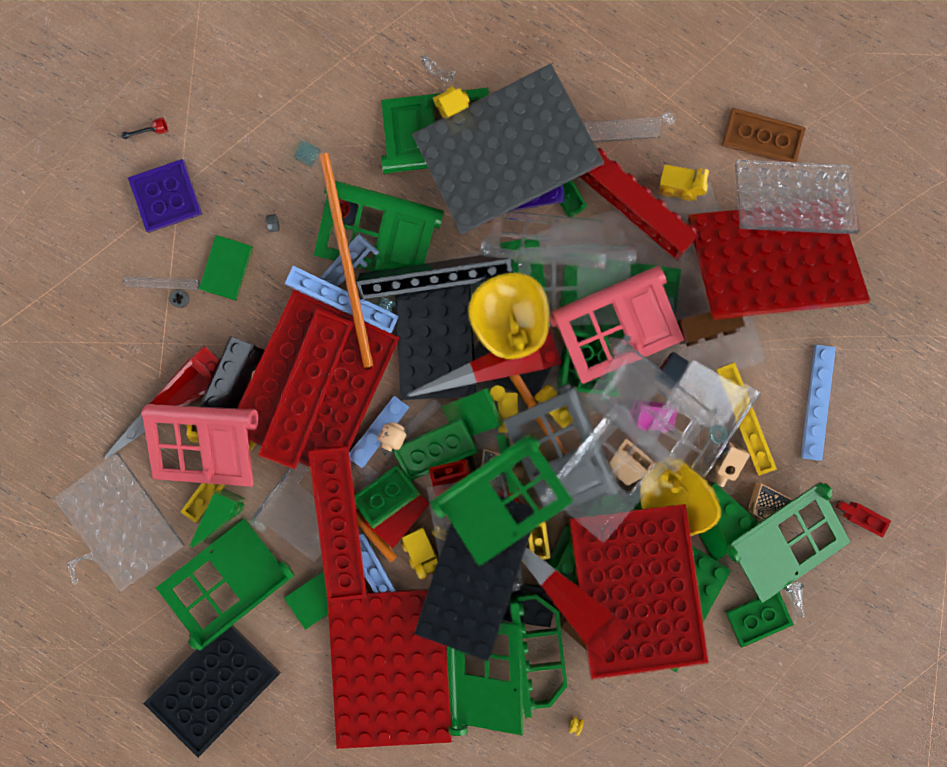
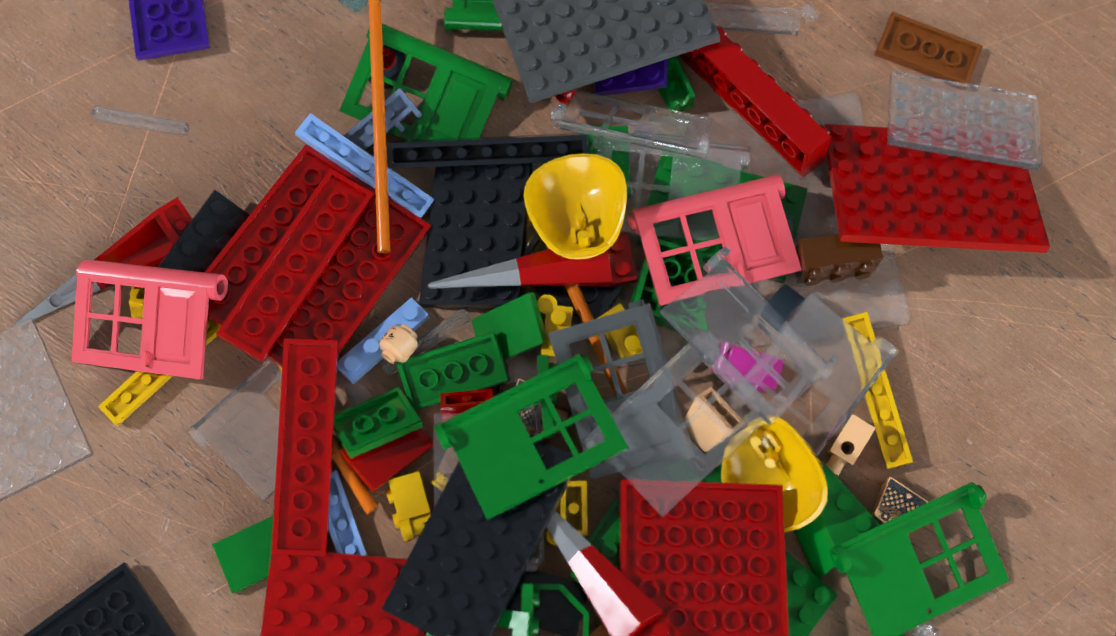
camera: 10 degrees right, 15 degrees down
(174, 295) = (164, 146): dark grey bush -> none
(220, 510) = (146, 415): green slope -> none
(226, 267) = (225, 114): green tile -> none
(246, 568) = (166, 491): green door -> none
(272, 223) = (295, 68): dark grey axle -> none
(386, 304) = (421, 181): clear light blue bush -> none
(682, 182) = (820, 85): yellow hinge -> none
(724, 435) = (839, 393): clear light blue bush -> none
(818, 402) = (976, 386): light blue plate -> none
(864, 517) = (1031, 547): red hinge -> none

